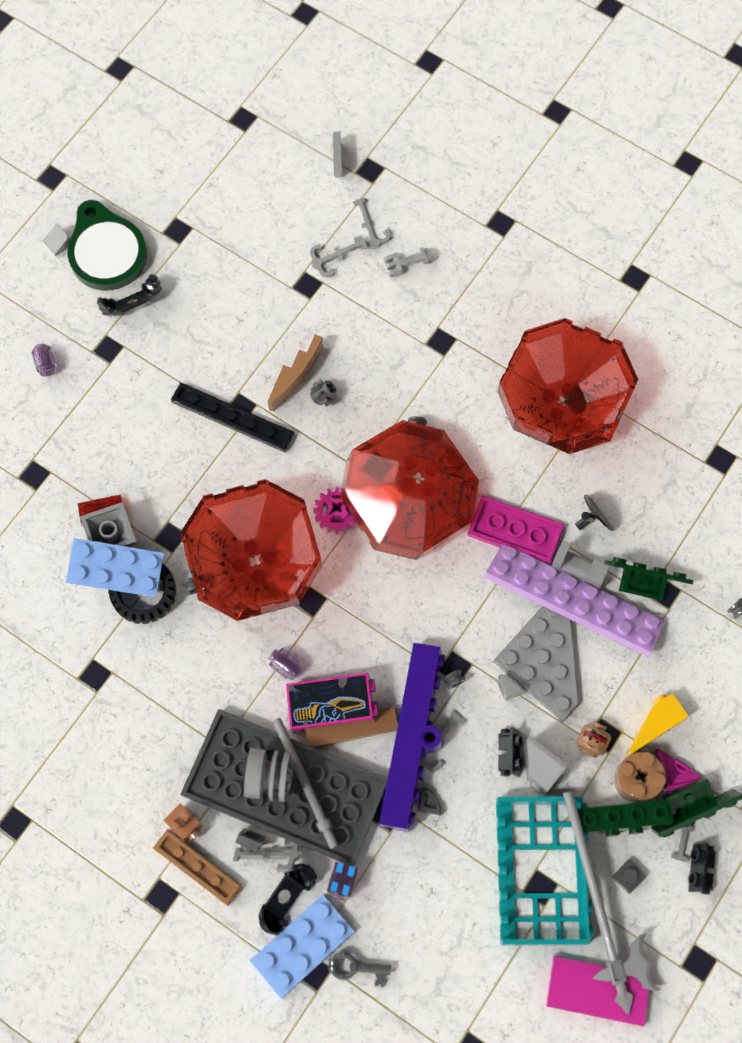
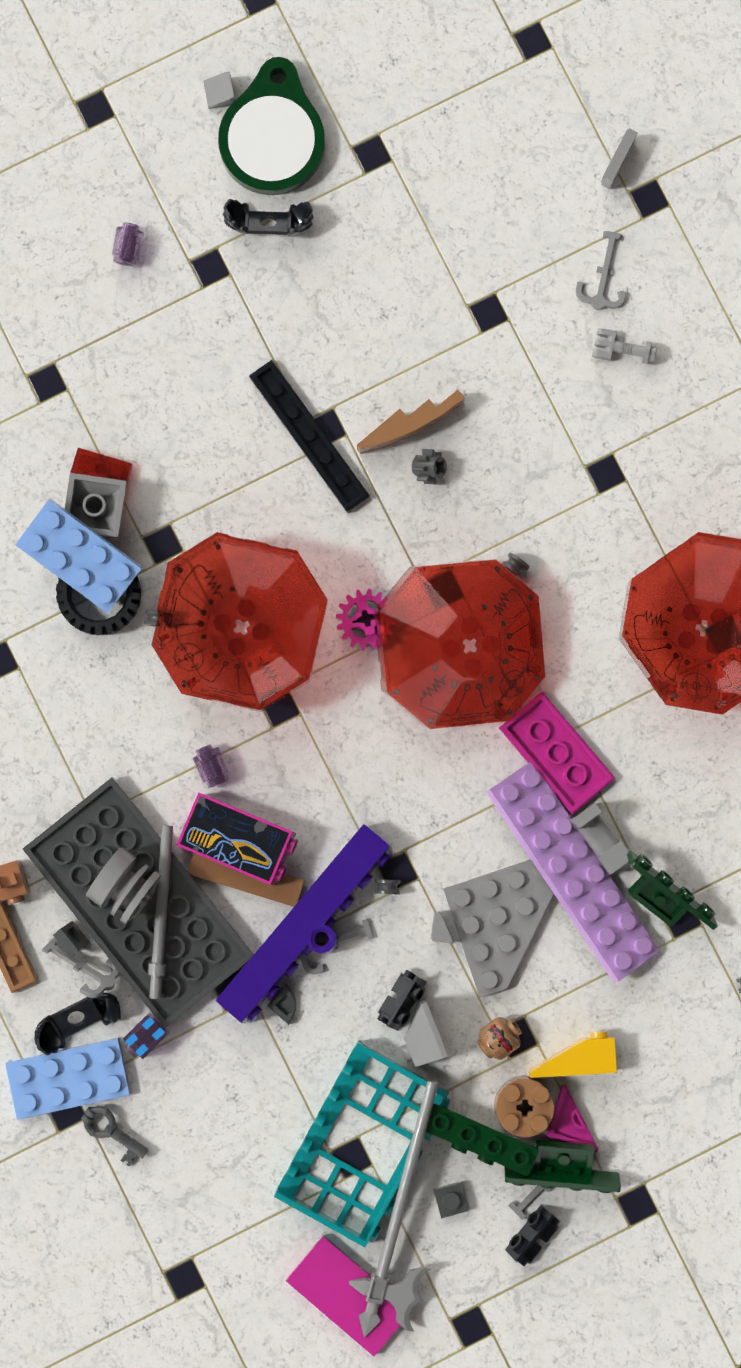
camera: 25 degrees right, 15 degrees up
(317, 262) = (516, 291): light grey piece -> none
(595, 513) = (654, 786): black shield -> none

